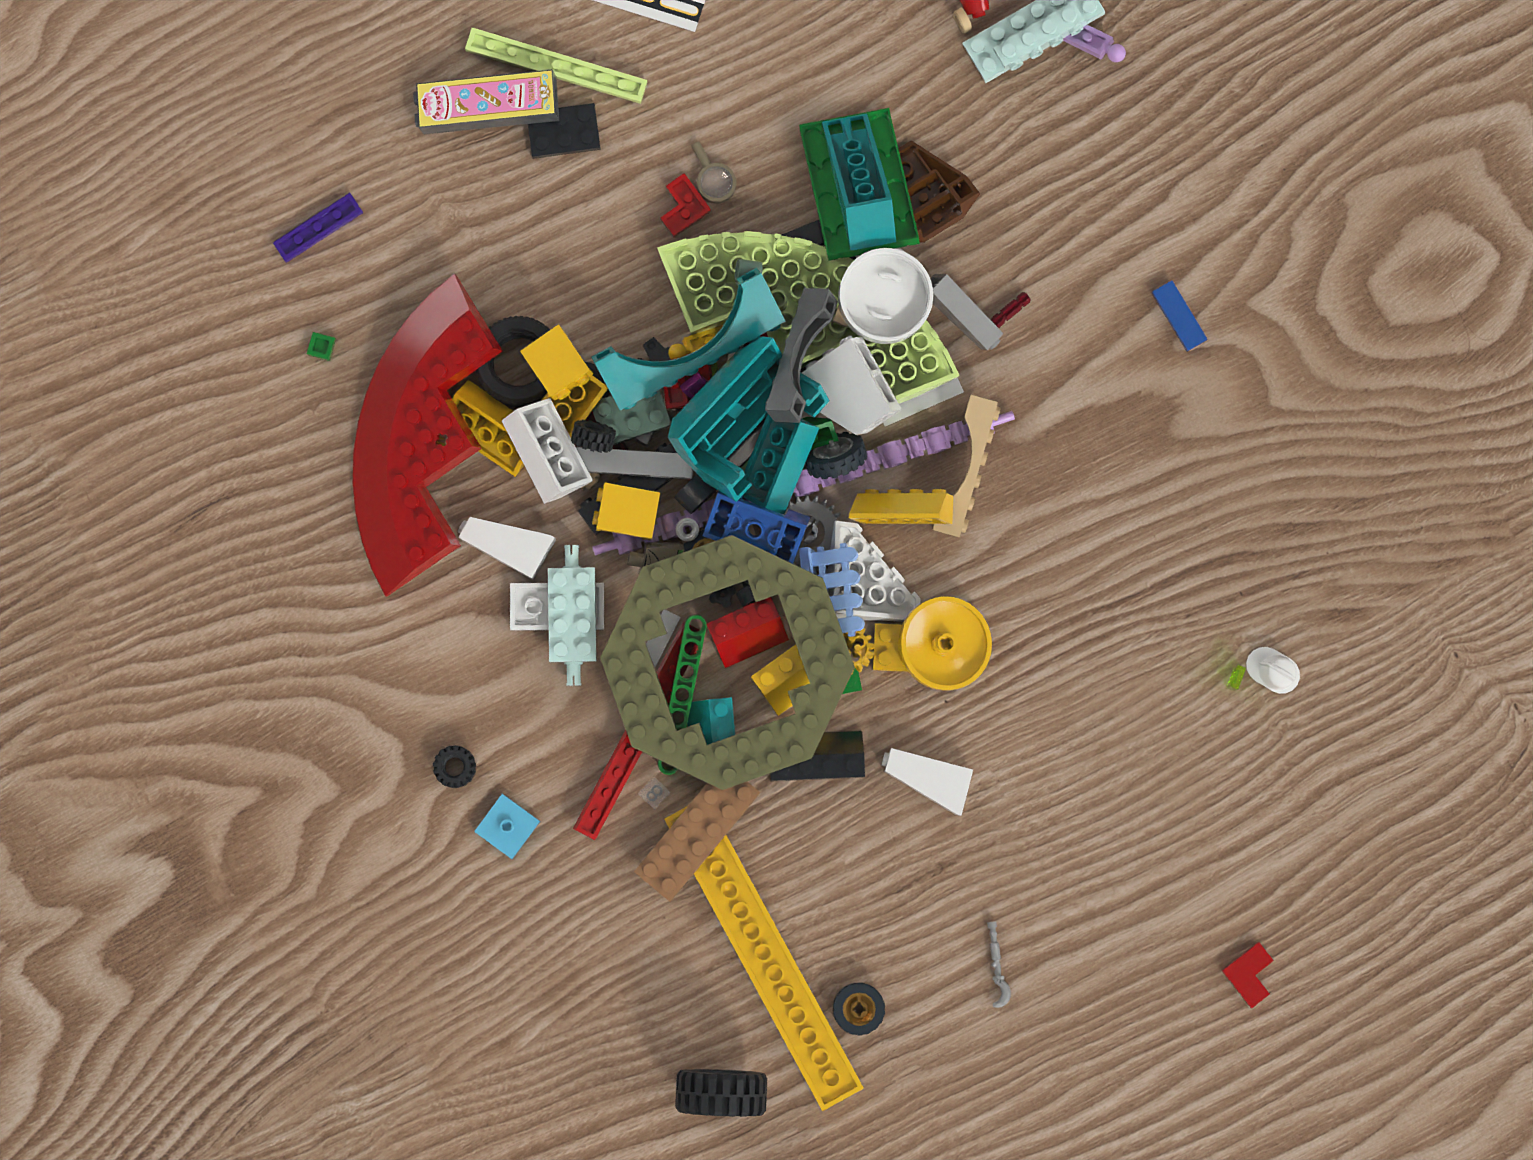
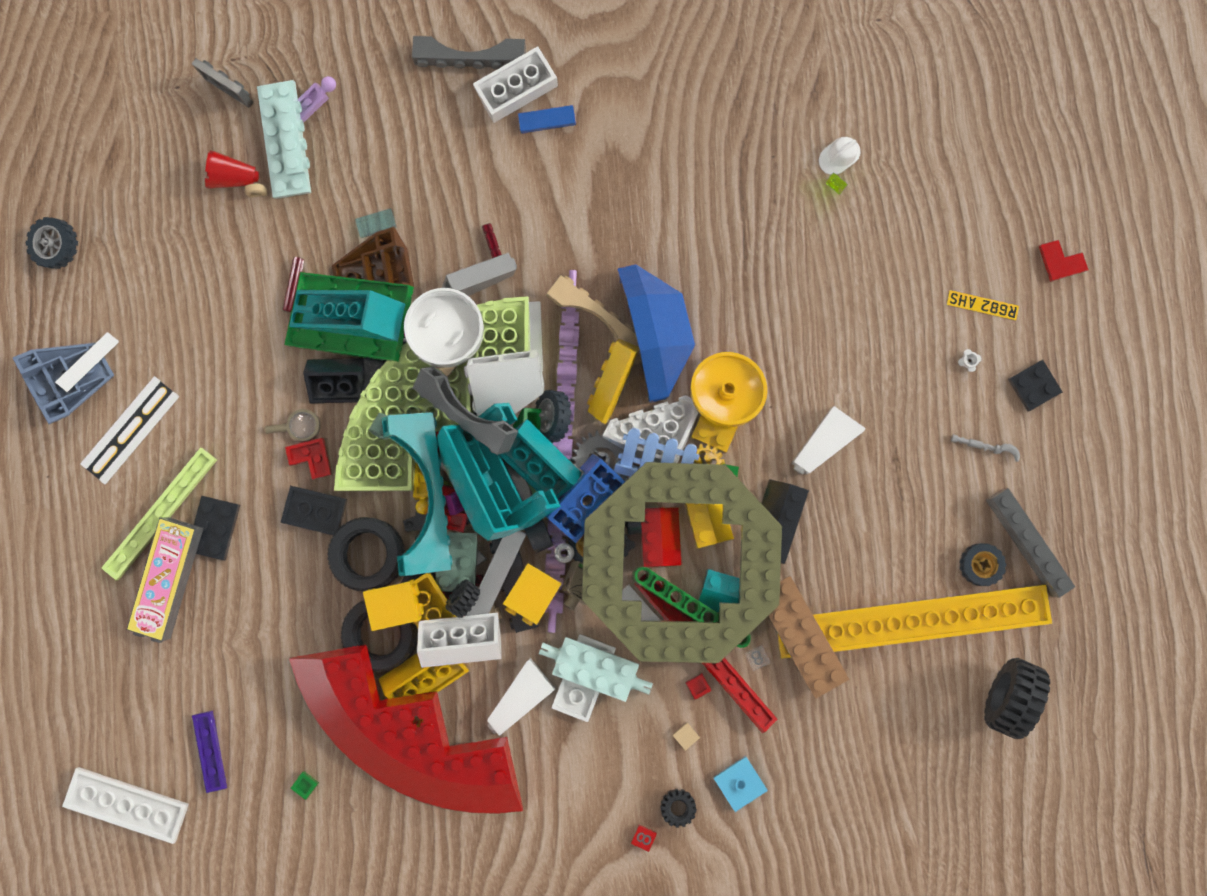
camera: 60 degrees left, 0 degrees up
(226, 161) = (125, 805): none -> white plate
(407, 741) = (643, 838): none -> red tile
(536, 746) = (686, 736): none -> tan tile
(596, 738) = (698, 686): none -> red tile
(599, 278) = (339, 547): none -> black tyre
(625, 233) = (313, 510): none -> black plate
(781, 197) = (334, 380): none -> black slope
(890, 102) = (296, 268): none -> dark red axle
(904, 1053) = (1030, 543): none -> dark grey brick
(979, 170) = (375, 222): none -> clear light blue tile
(982, 536) = (660, 329): none -> blue panel
(1090, 996) = (1035, 385): none -> black plate
(1094, 904) = (975, 359): none -> white plate
(1162, 902) = (982, 305): none -> yellow sticker
(1203, 264) = (515, 84): none -> white slope
(1237, 240) = (430, 52): none -> dark grey arch

